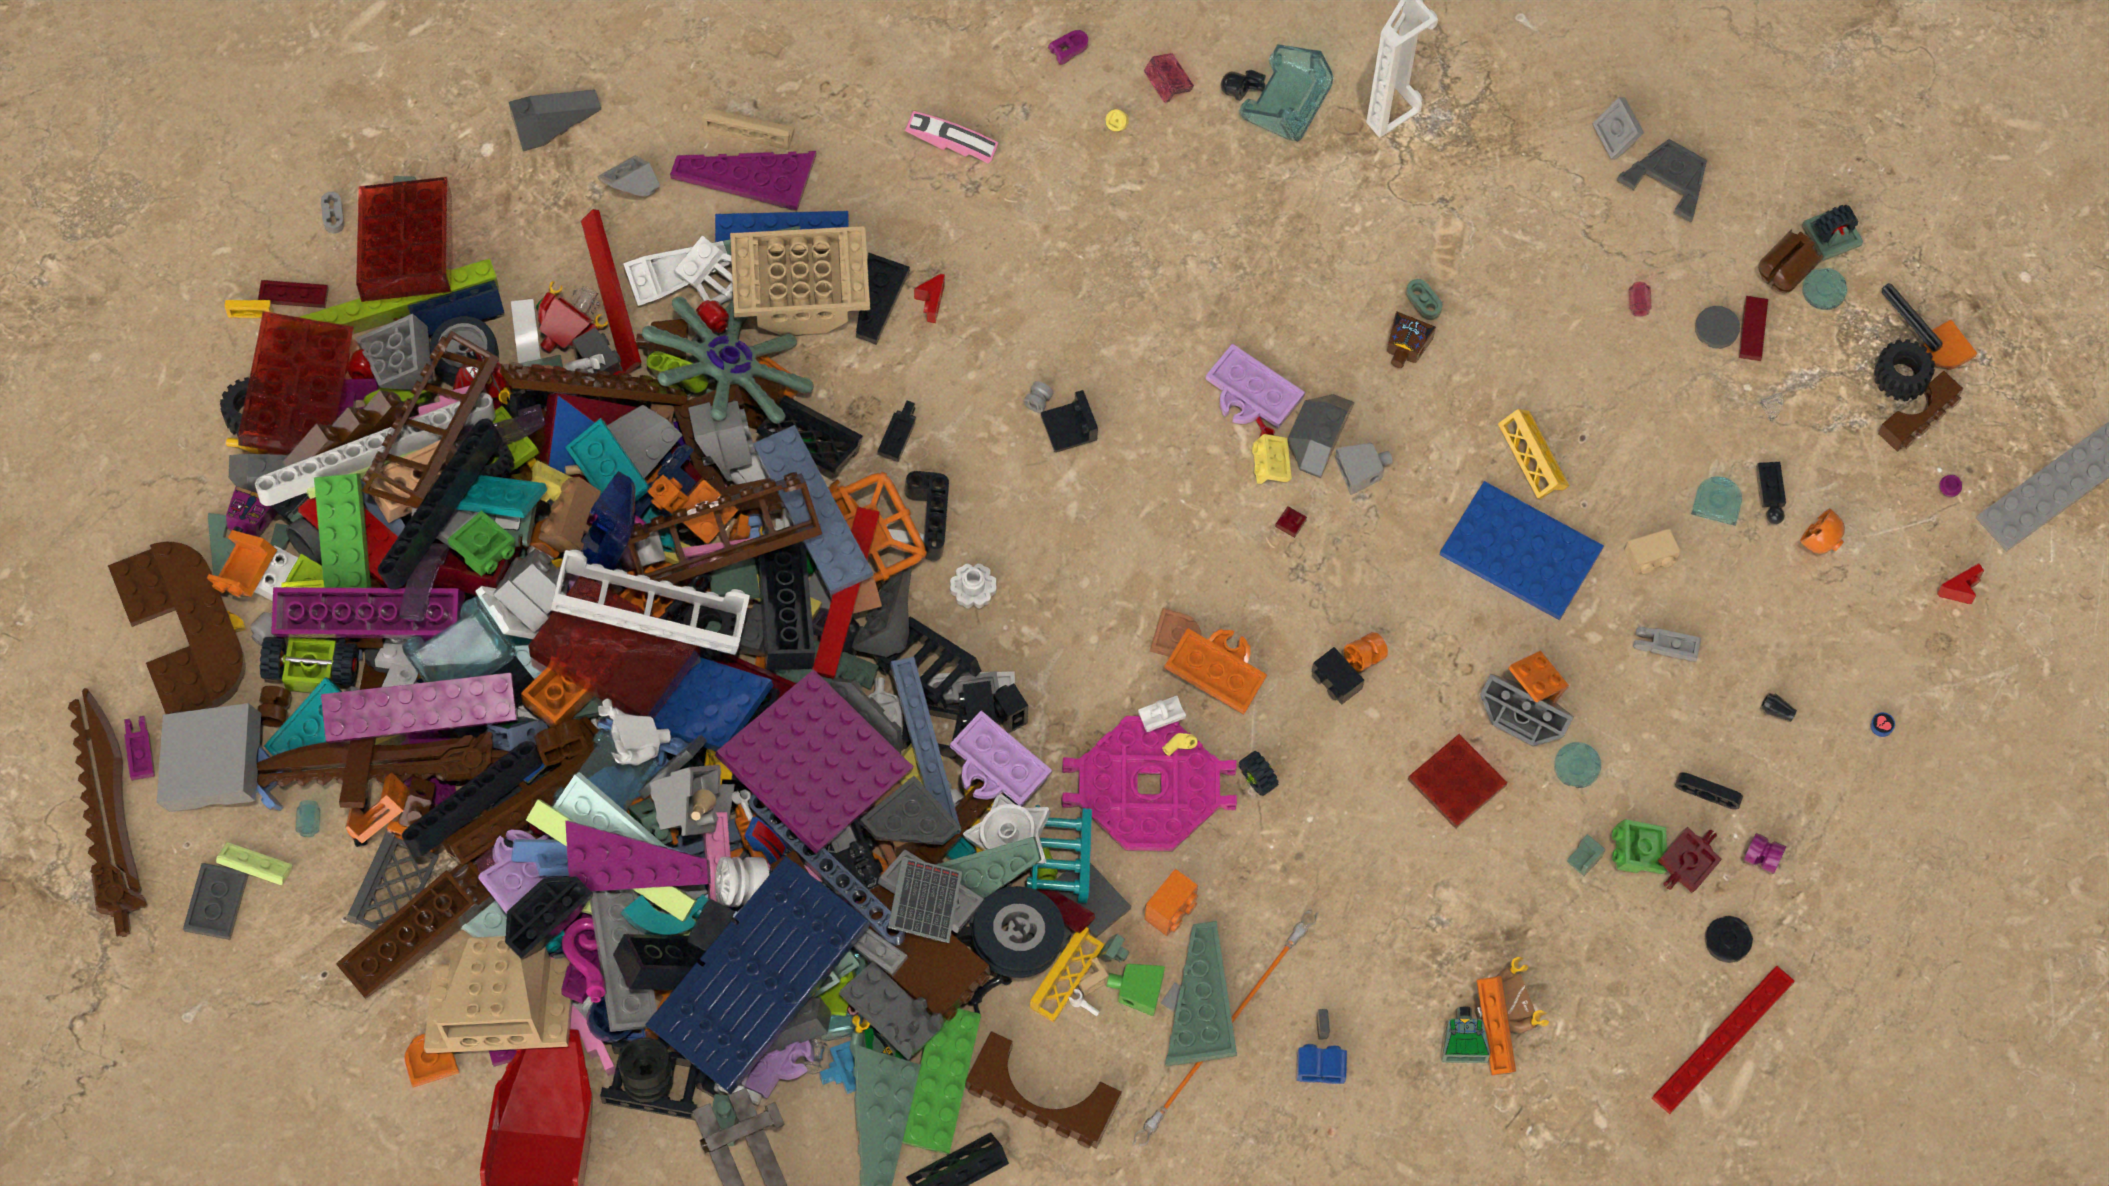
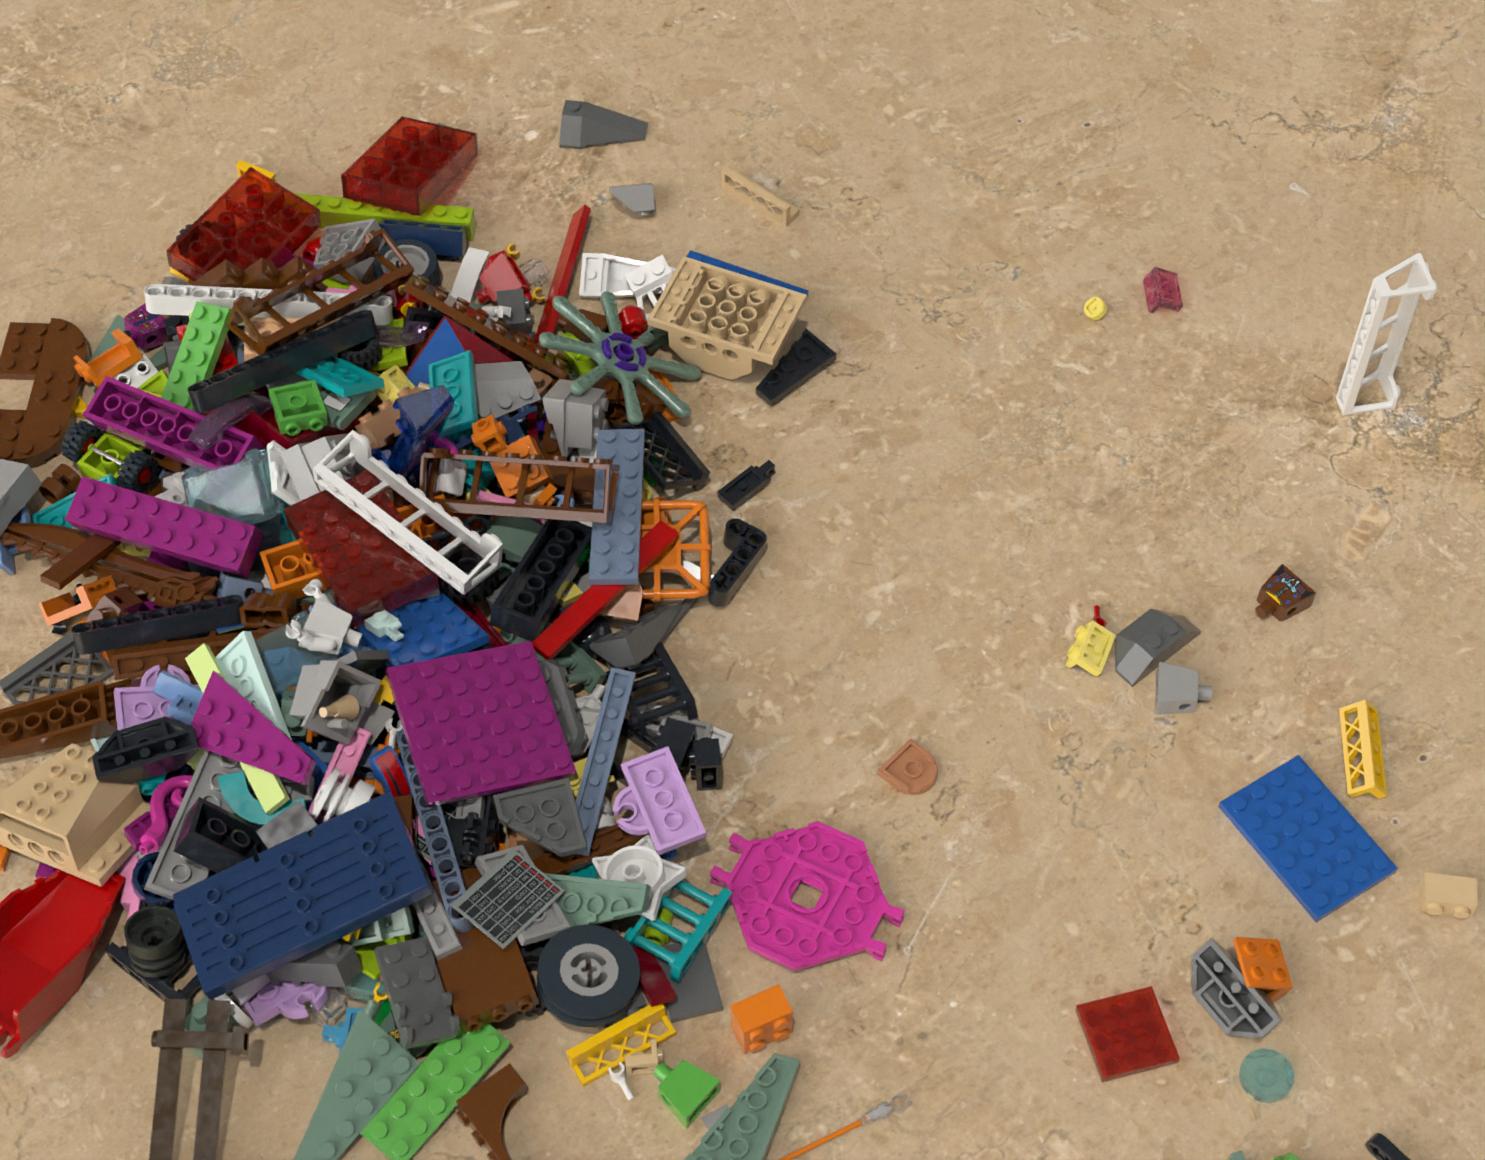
camera: 30 degrees right, 10 degrees down
(294, 293) = (301, 180): dark red tile -> none
(307, 818) = (25, 589): clear light blue brick -> none
(327, 213) = (370, 132): light grey beam -> none
(677, 710) = (383, 624): none -> light aqua plate
(757, 176) = (740, 233): magenta wing -> none
(931, 293) = (843, 385): red slope -> none
(951, 135) = (935, 265): slope -> none
(973, 586) = (738, 643): white plant -> none
(983, 990) = (530, 1021): black piece -> none
(1037, 398) = (893, 505): light grey wheel -> none
(1070, 424) = (910, 540): black bracket -> none
(1075, 41) = (1087, 235): magenta plate -> none
(1113, 949) = (680, 1040): sand green tile -> none
(1161, 713) = (850, 831): white hips -> none
(1180, 741) = (857, 867): light yellow arm -> none
(1217, 668) = (934, 815): orange plate -> none
(1237, 84) = (1225, 320): black piece -> none
(1252, 388) = (1104, 579): lavender plate -> none
(1258, 773) = (920, 932): black wheel -> none
(1291, 521) = (1081, 713): dark red tile -> none
(1292, 93) = (1276, 348): clear light blue windscreen -> none
(1337, 676) = (1052, 875): black brick -> none
(1366, 651) = (1092, 863): orange wheel -> none
(1425, 299) = (1317, 569): sand green plate -> none
(1668, 643) = (1424, 994): light grey hinge -> none

